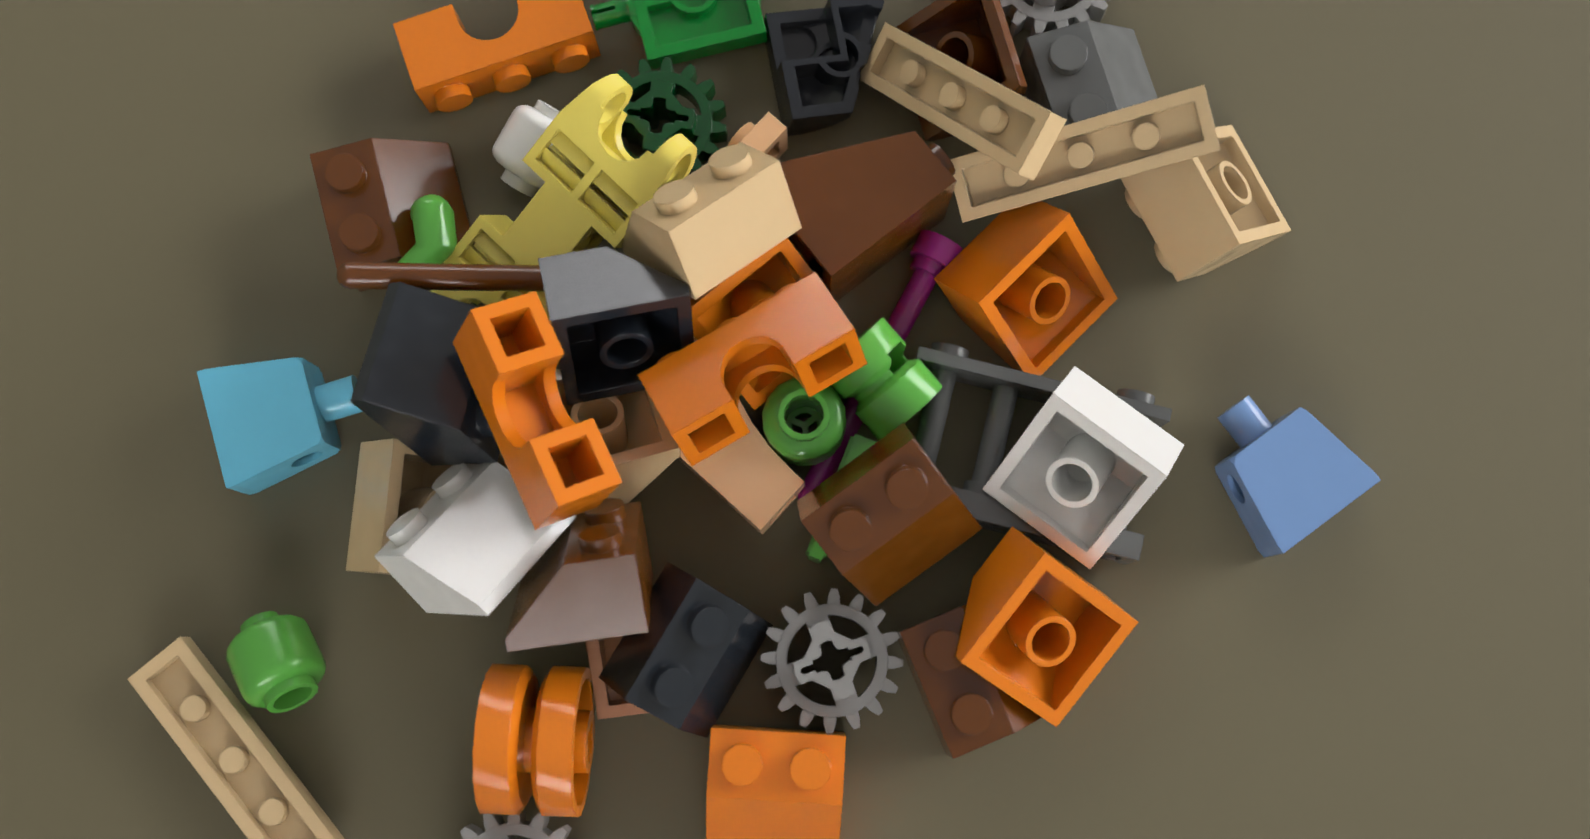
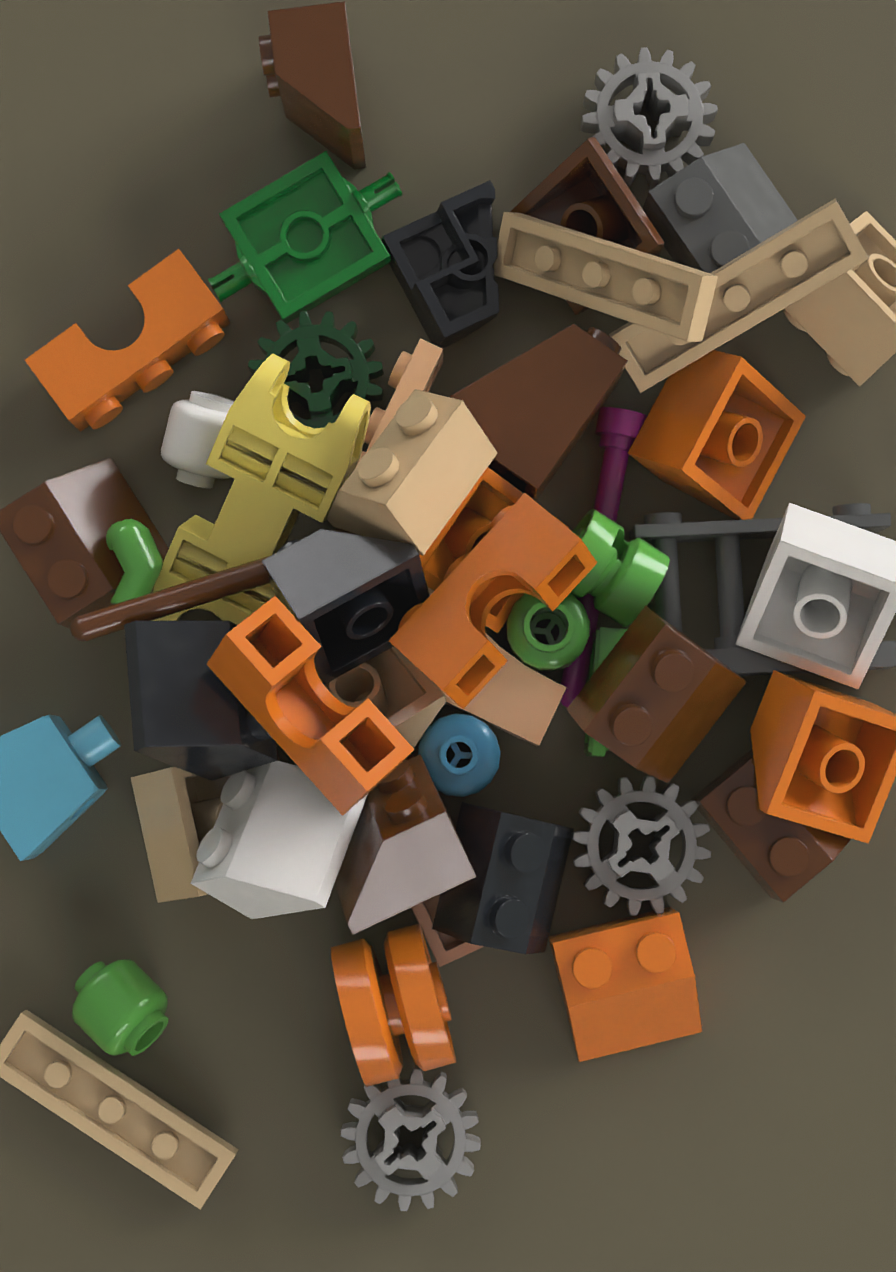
camera: 20 degrees left, 5 degrees up
(702, 525) = (483, 755): none -> dark azure head

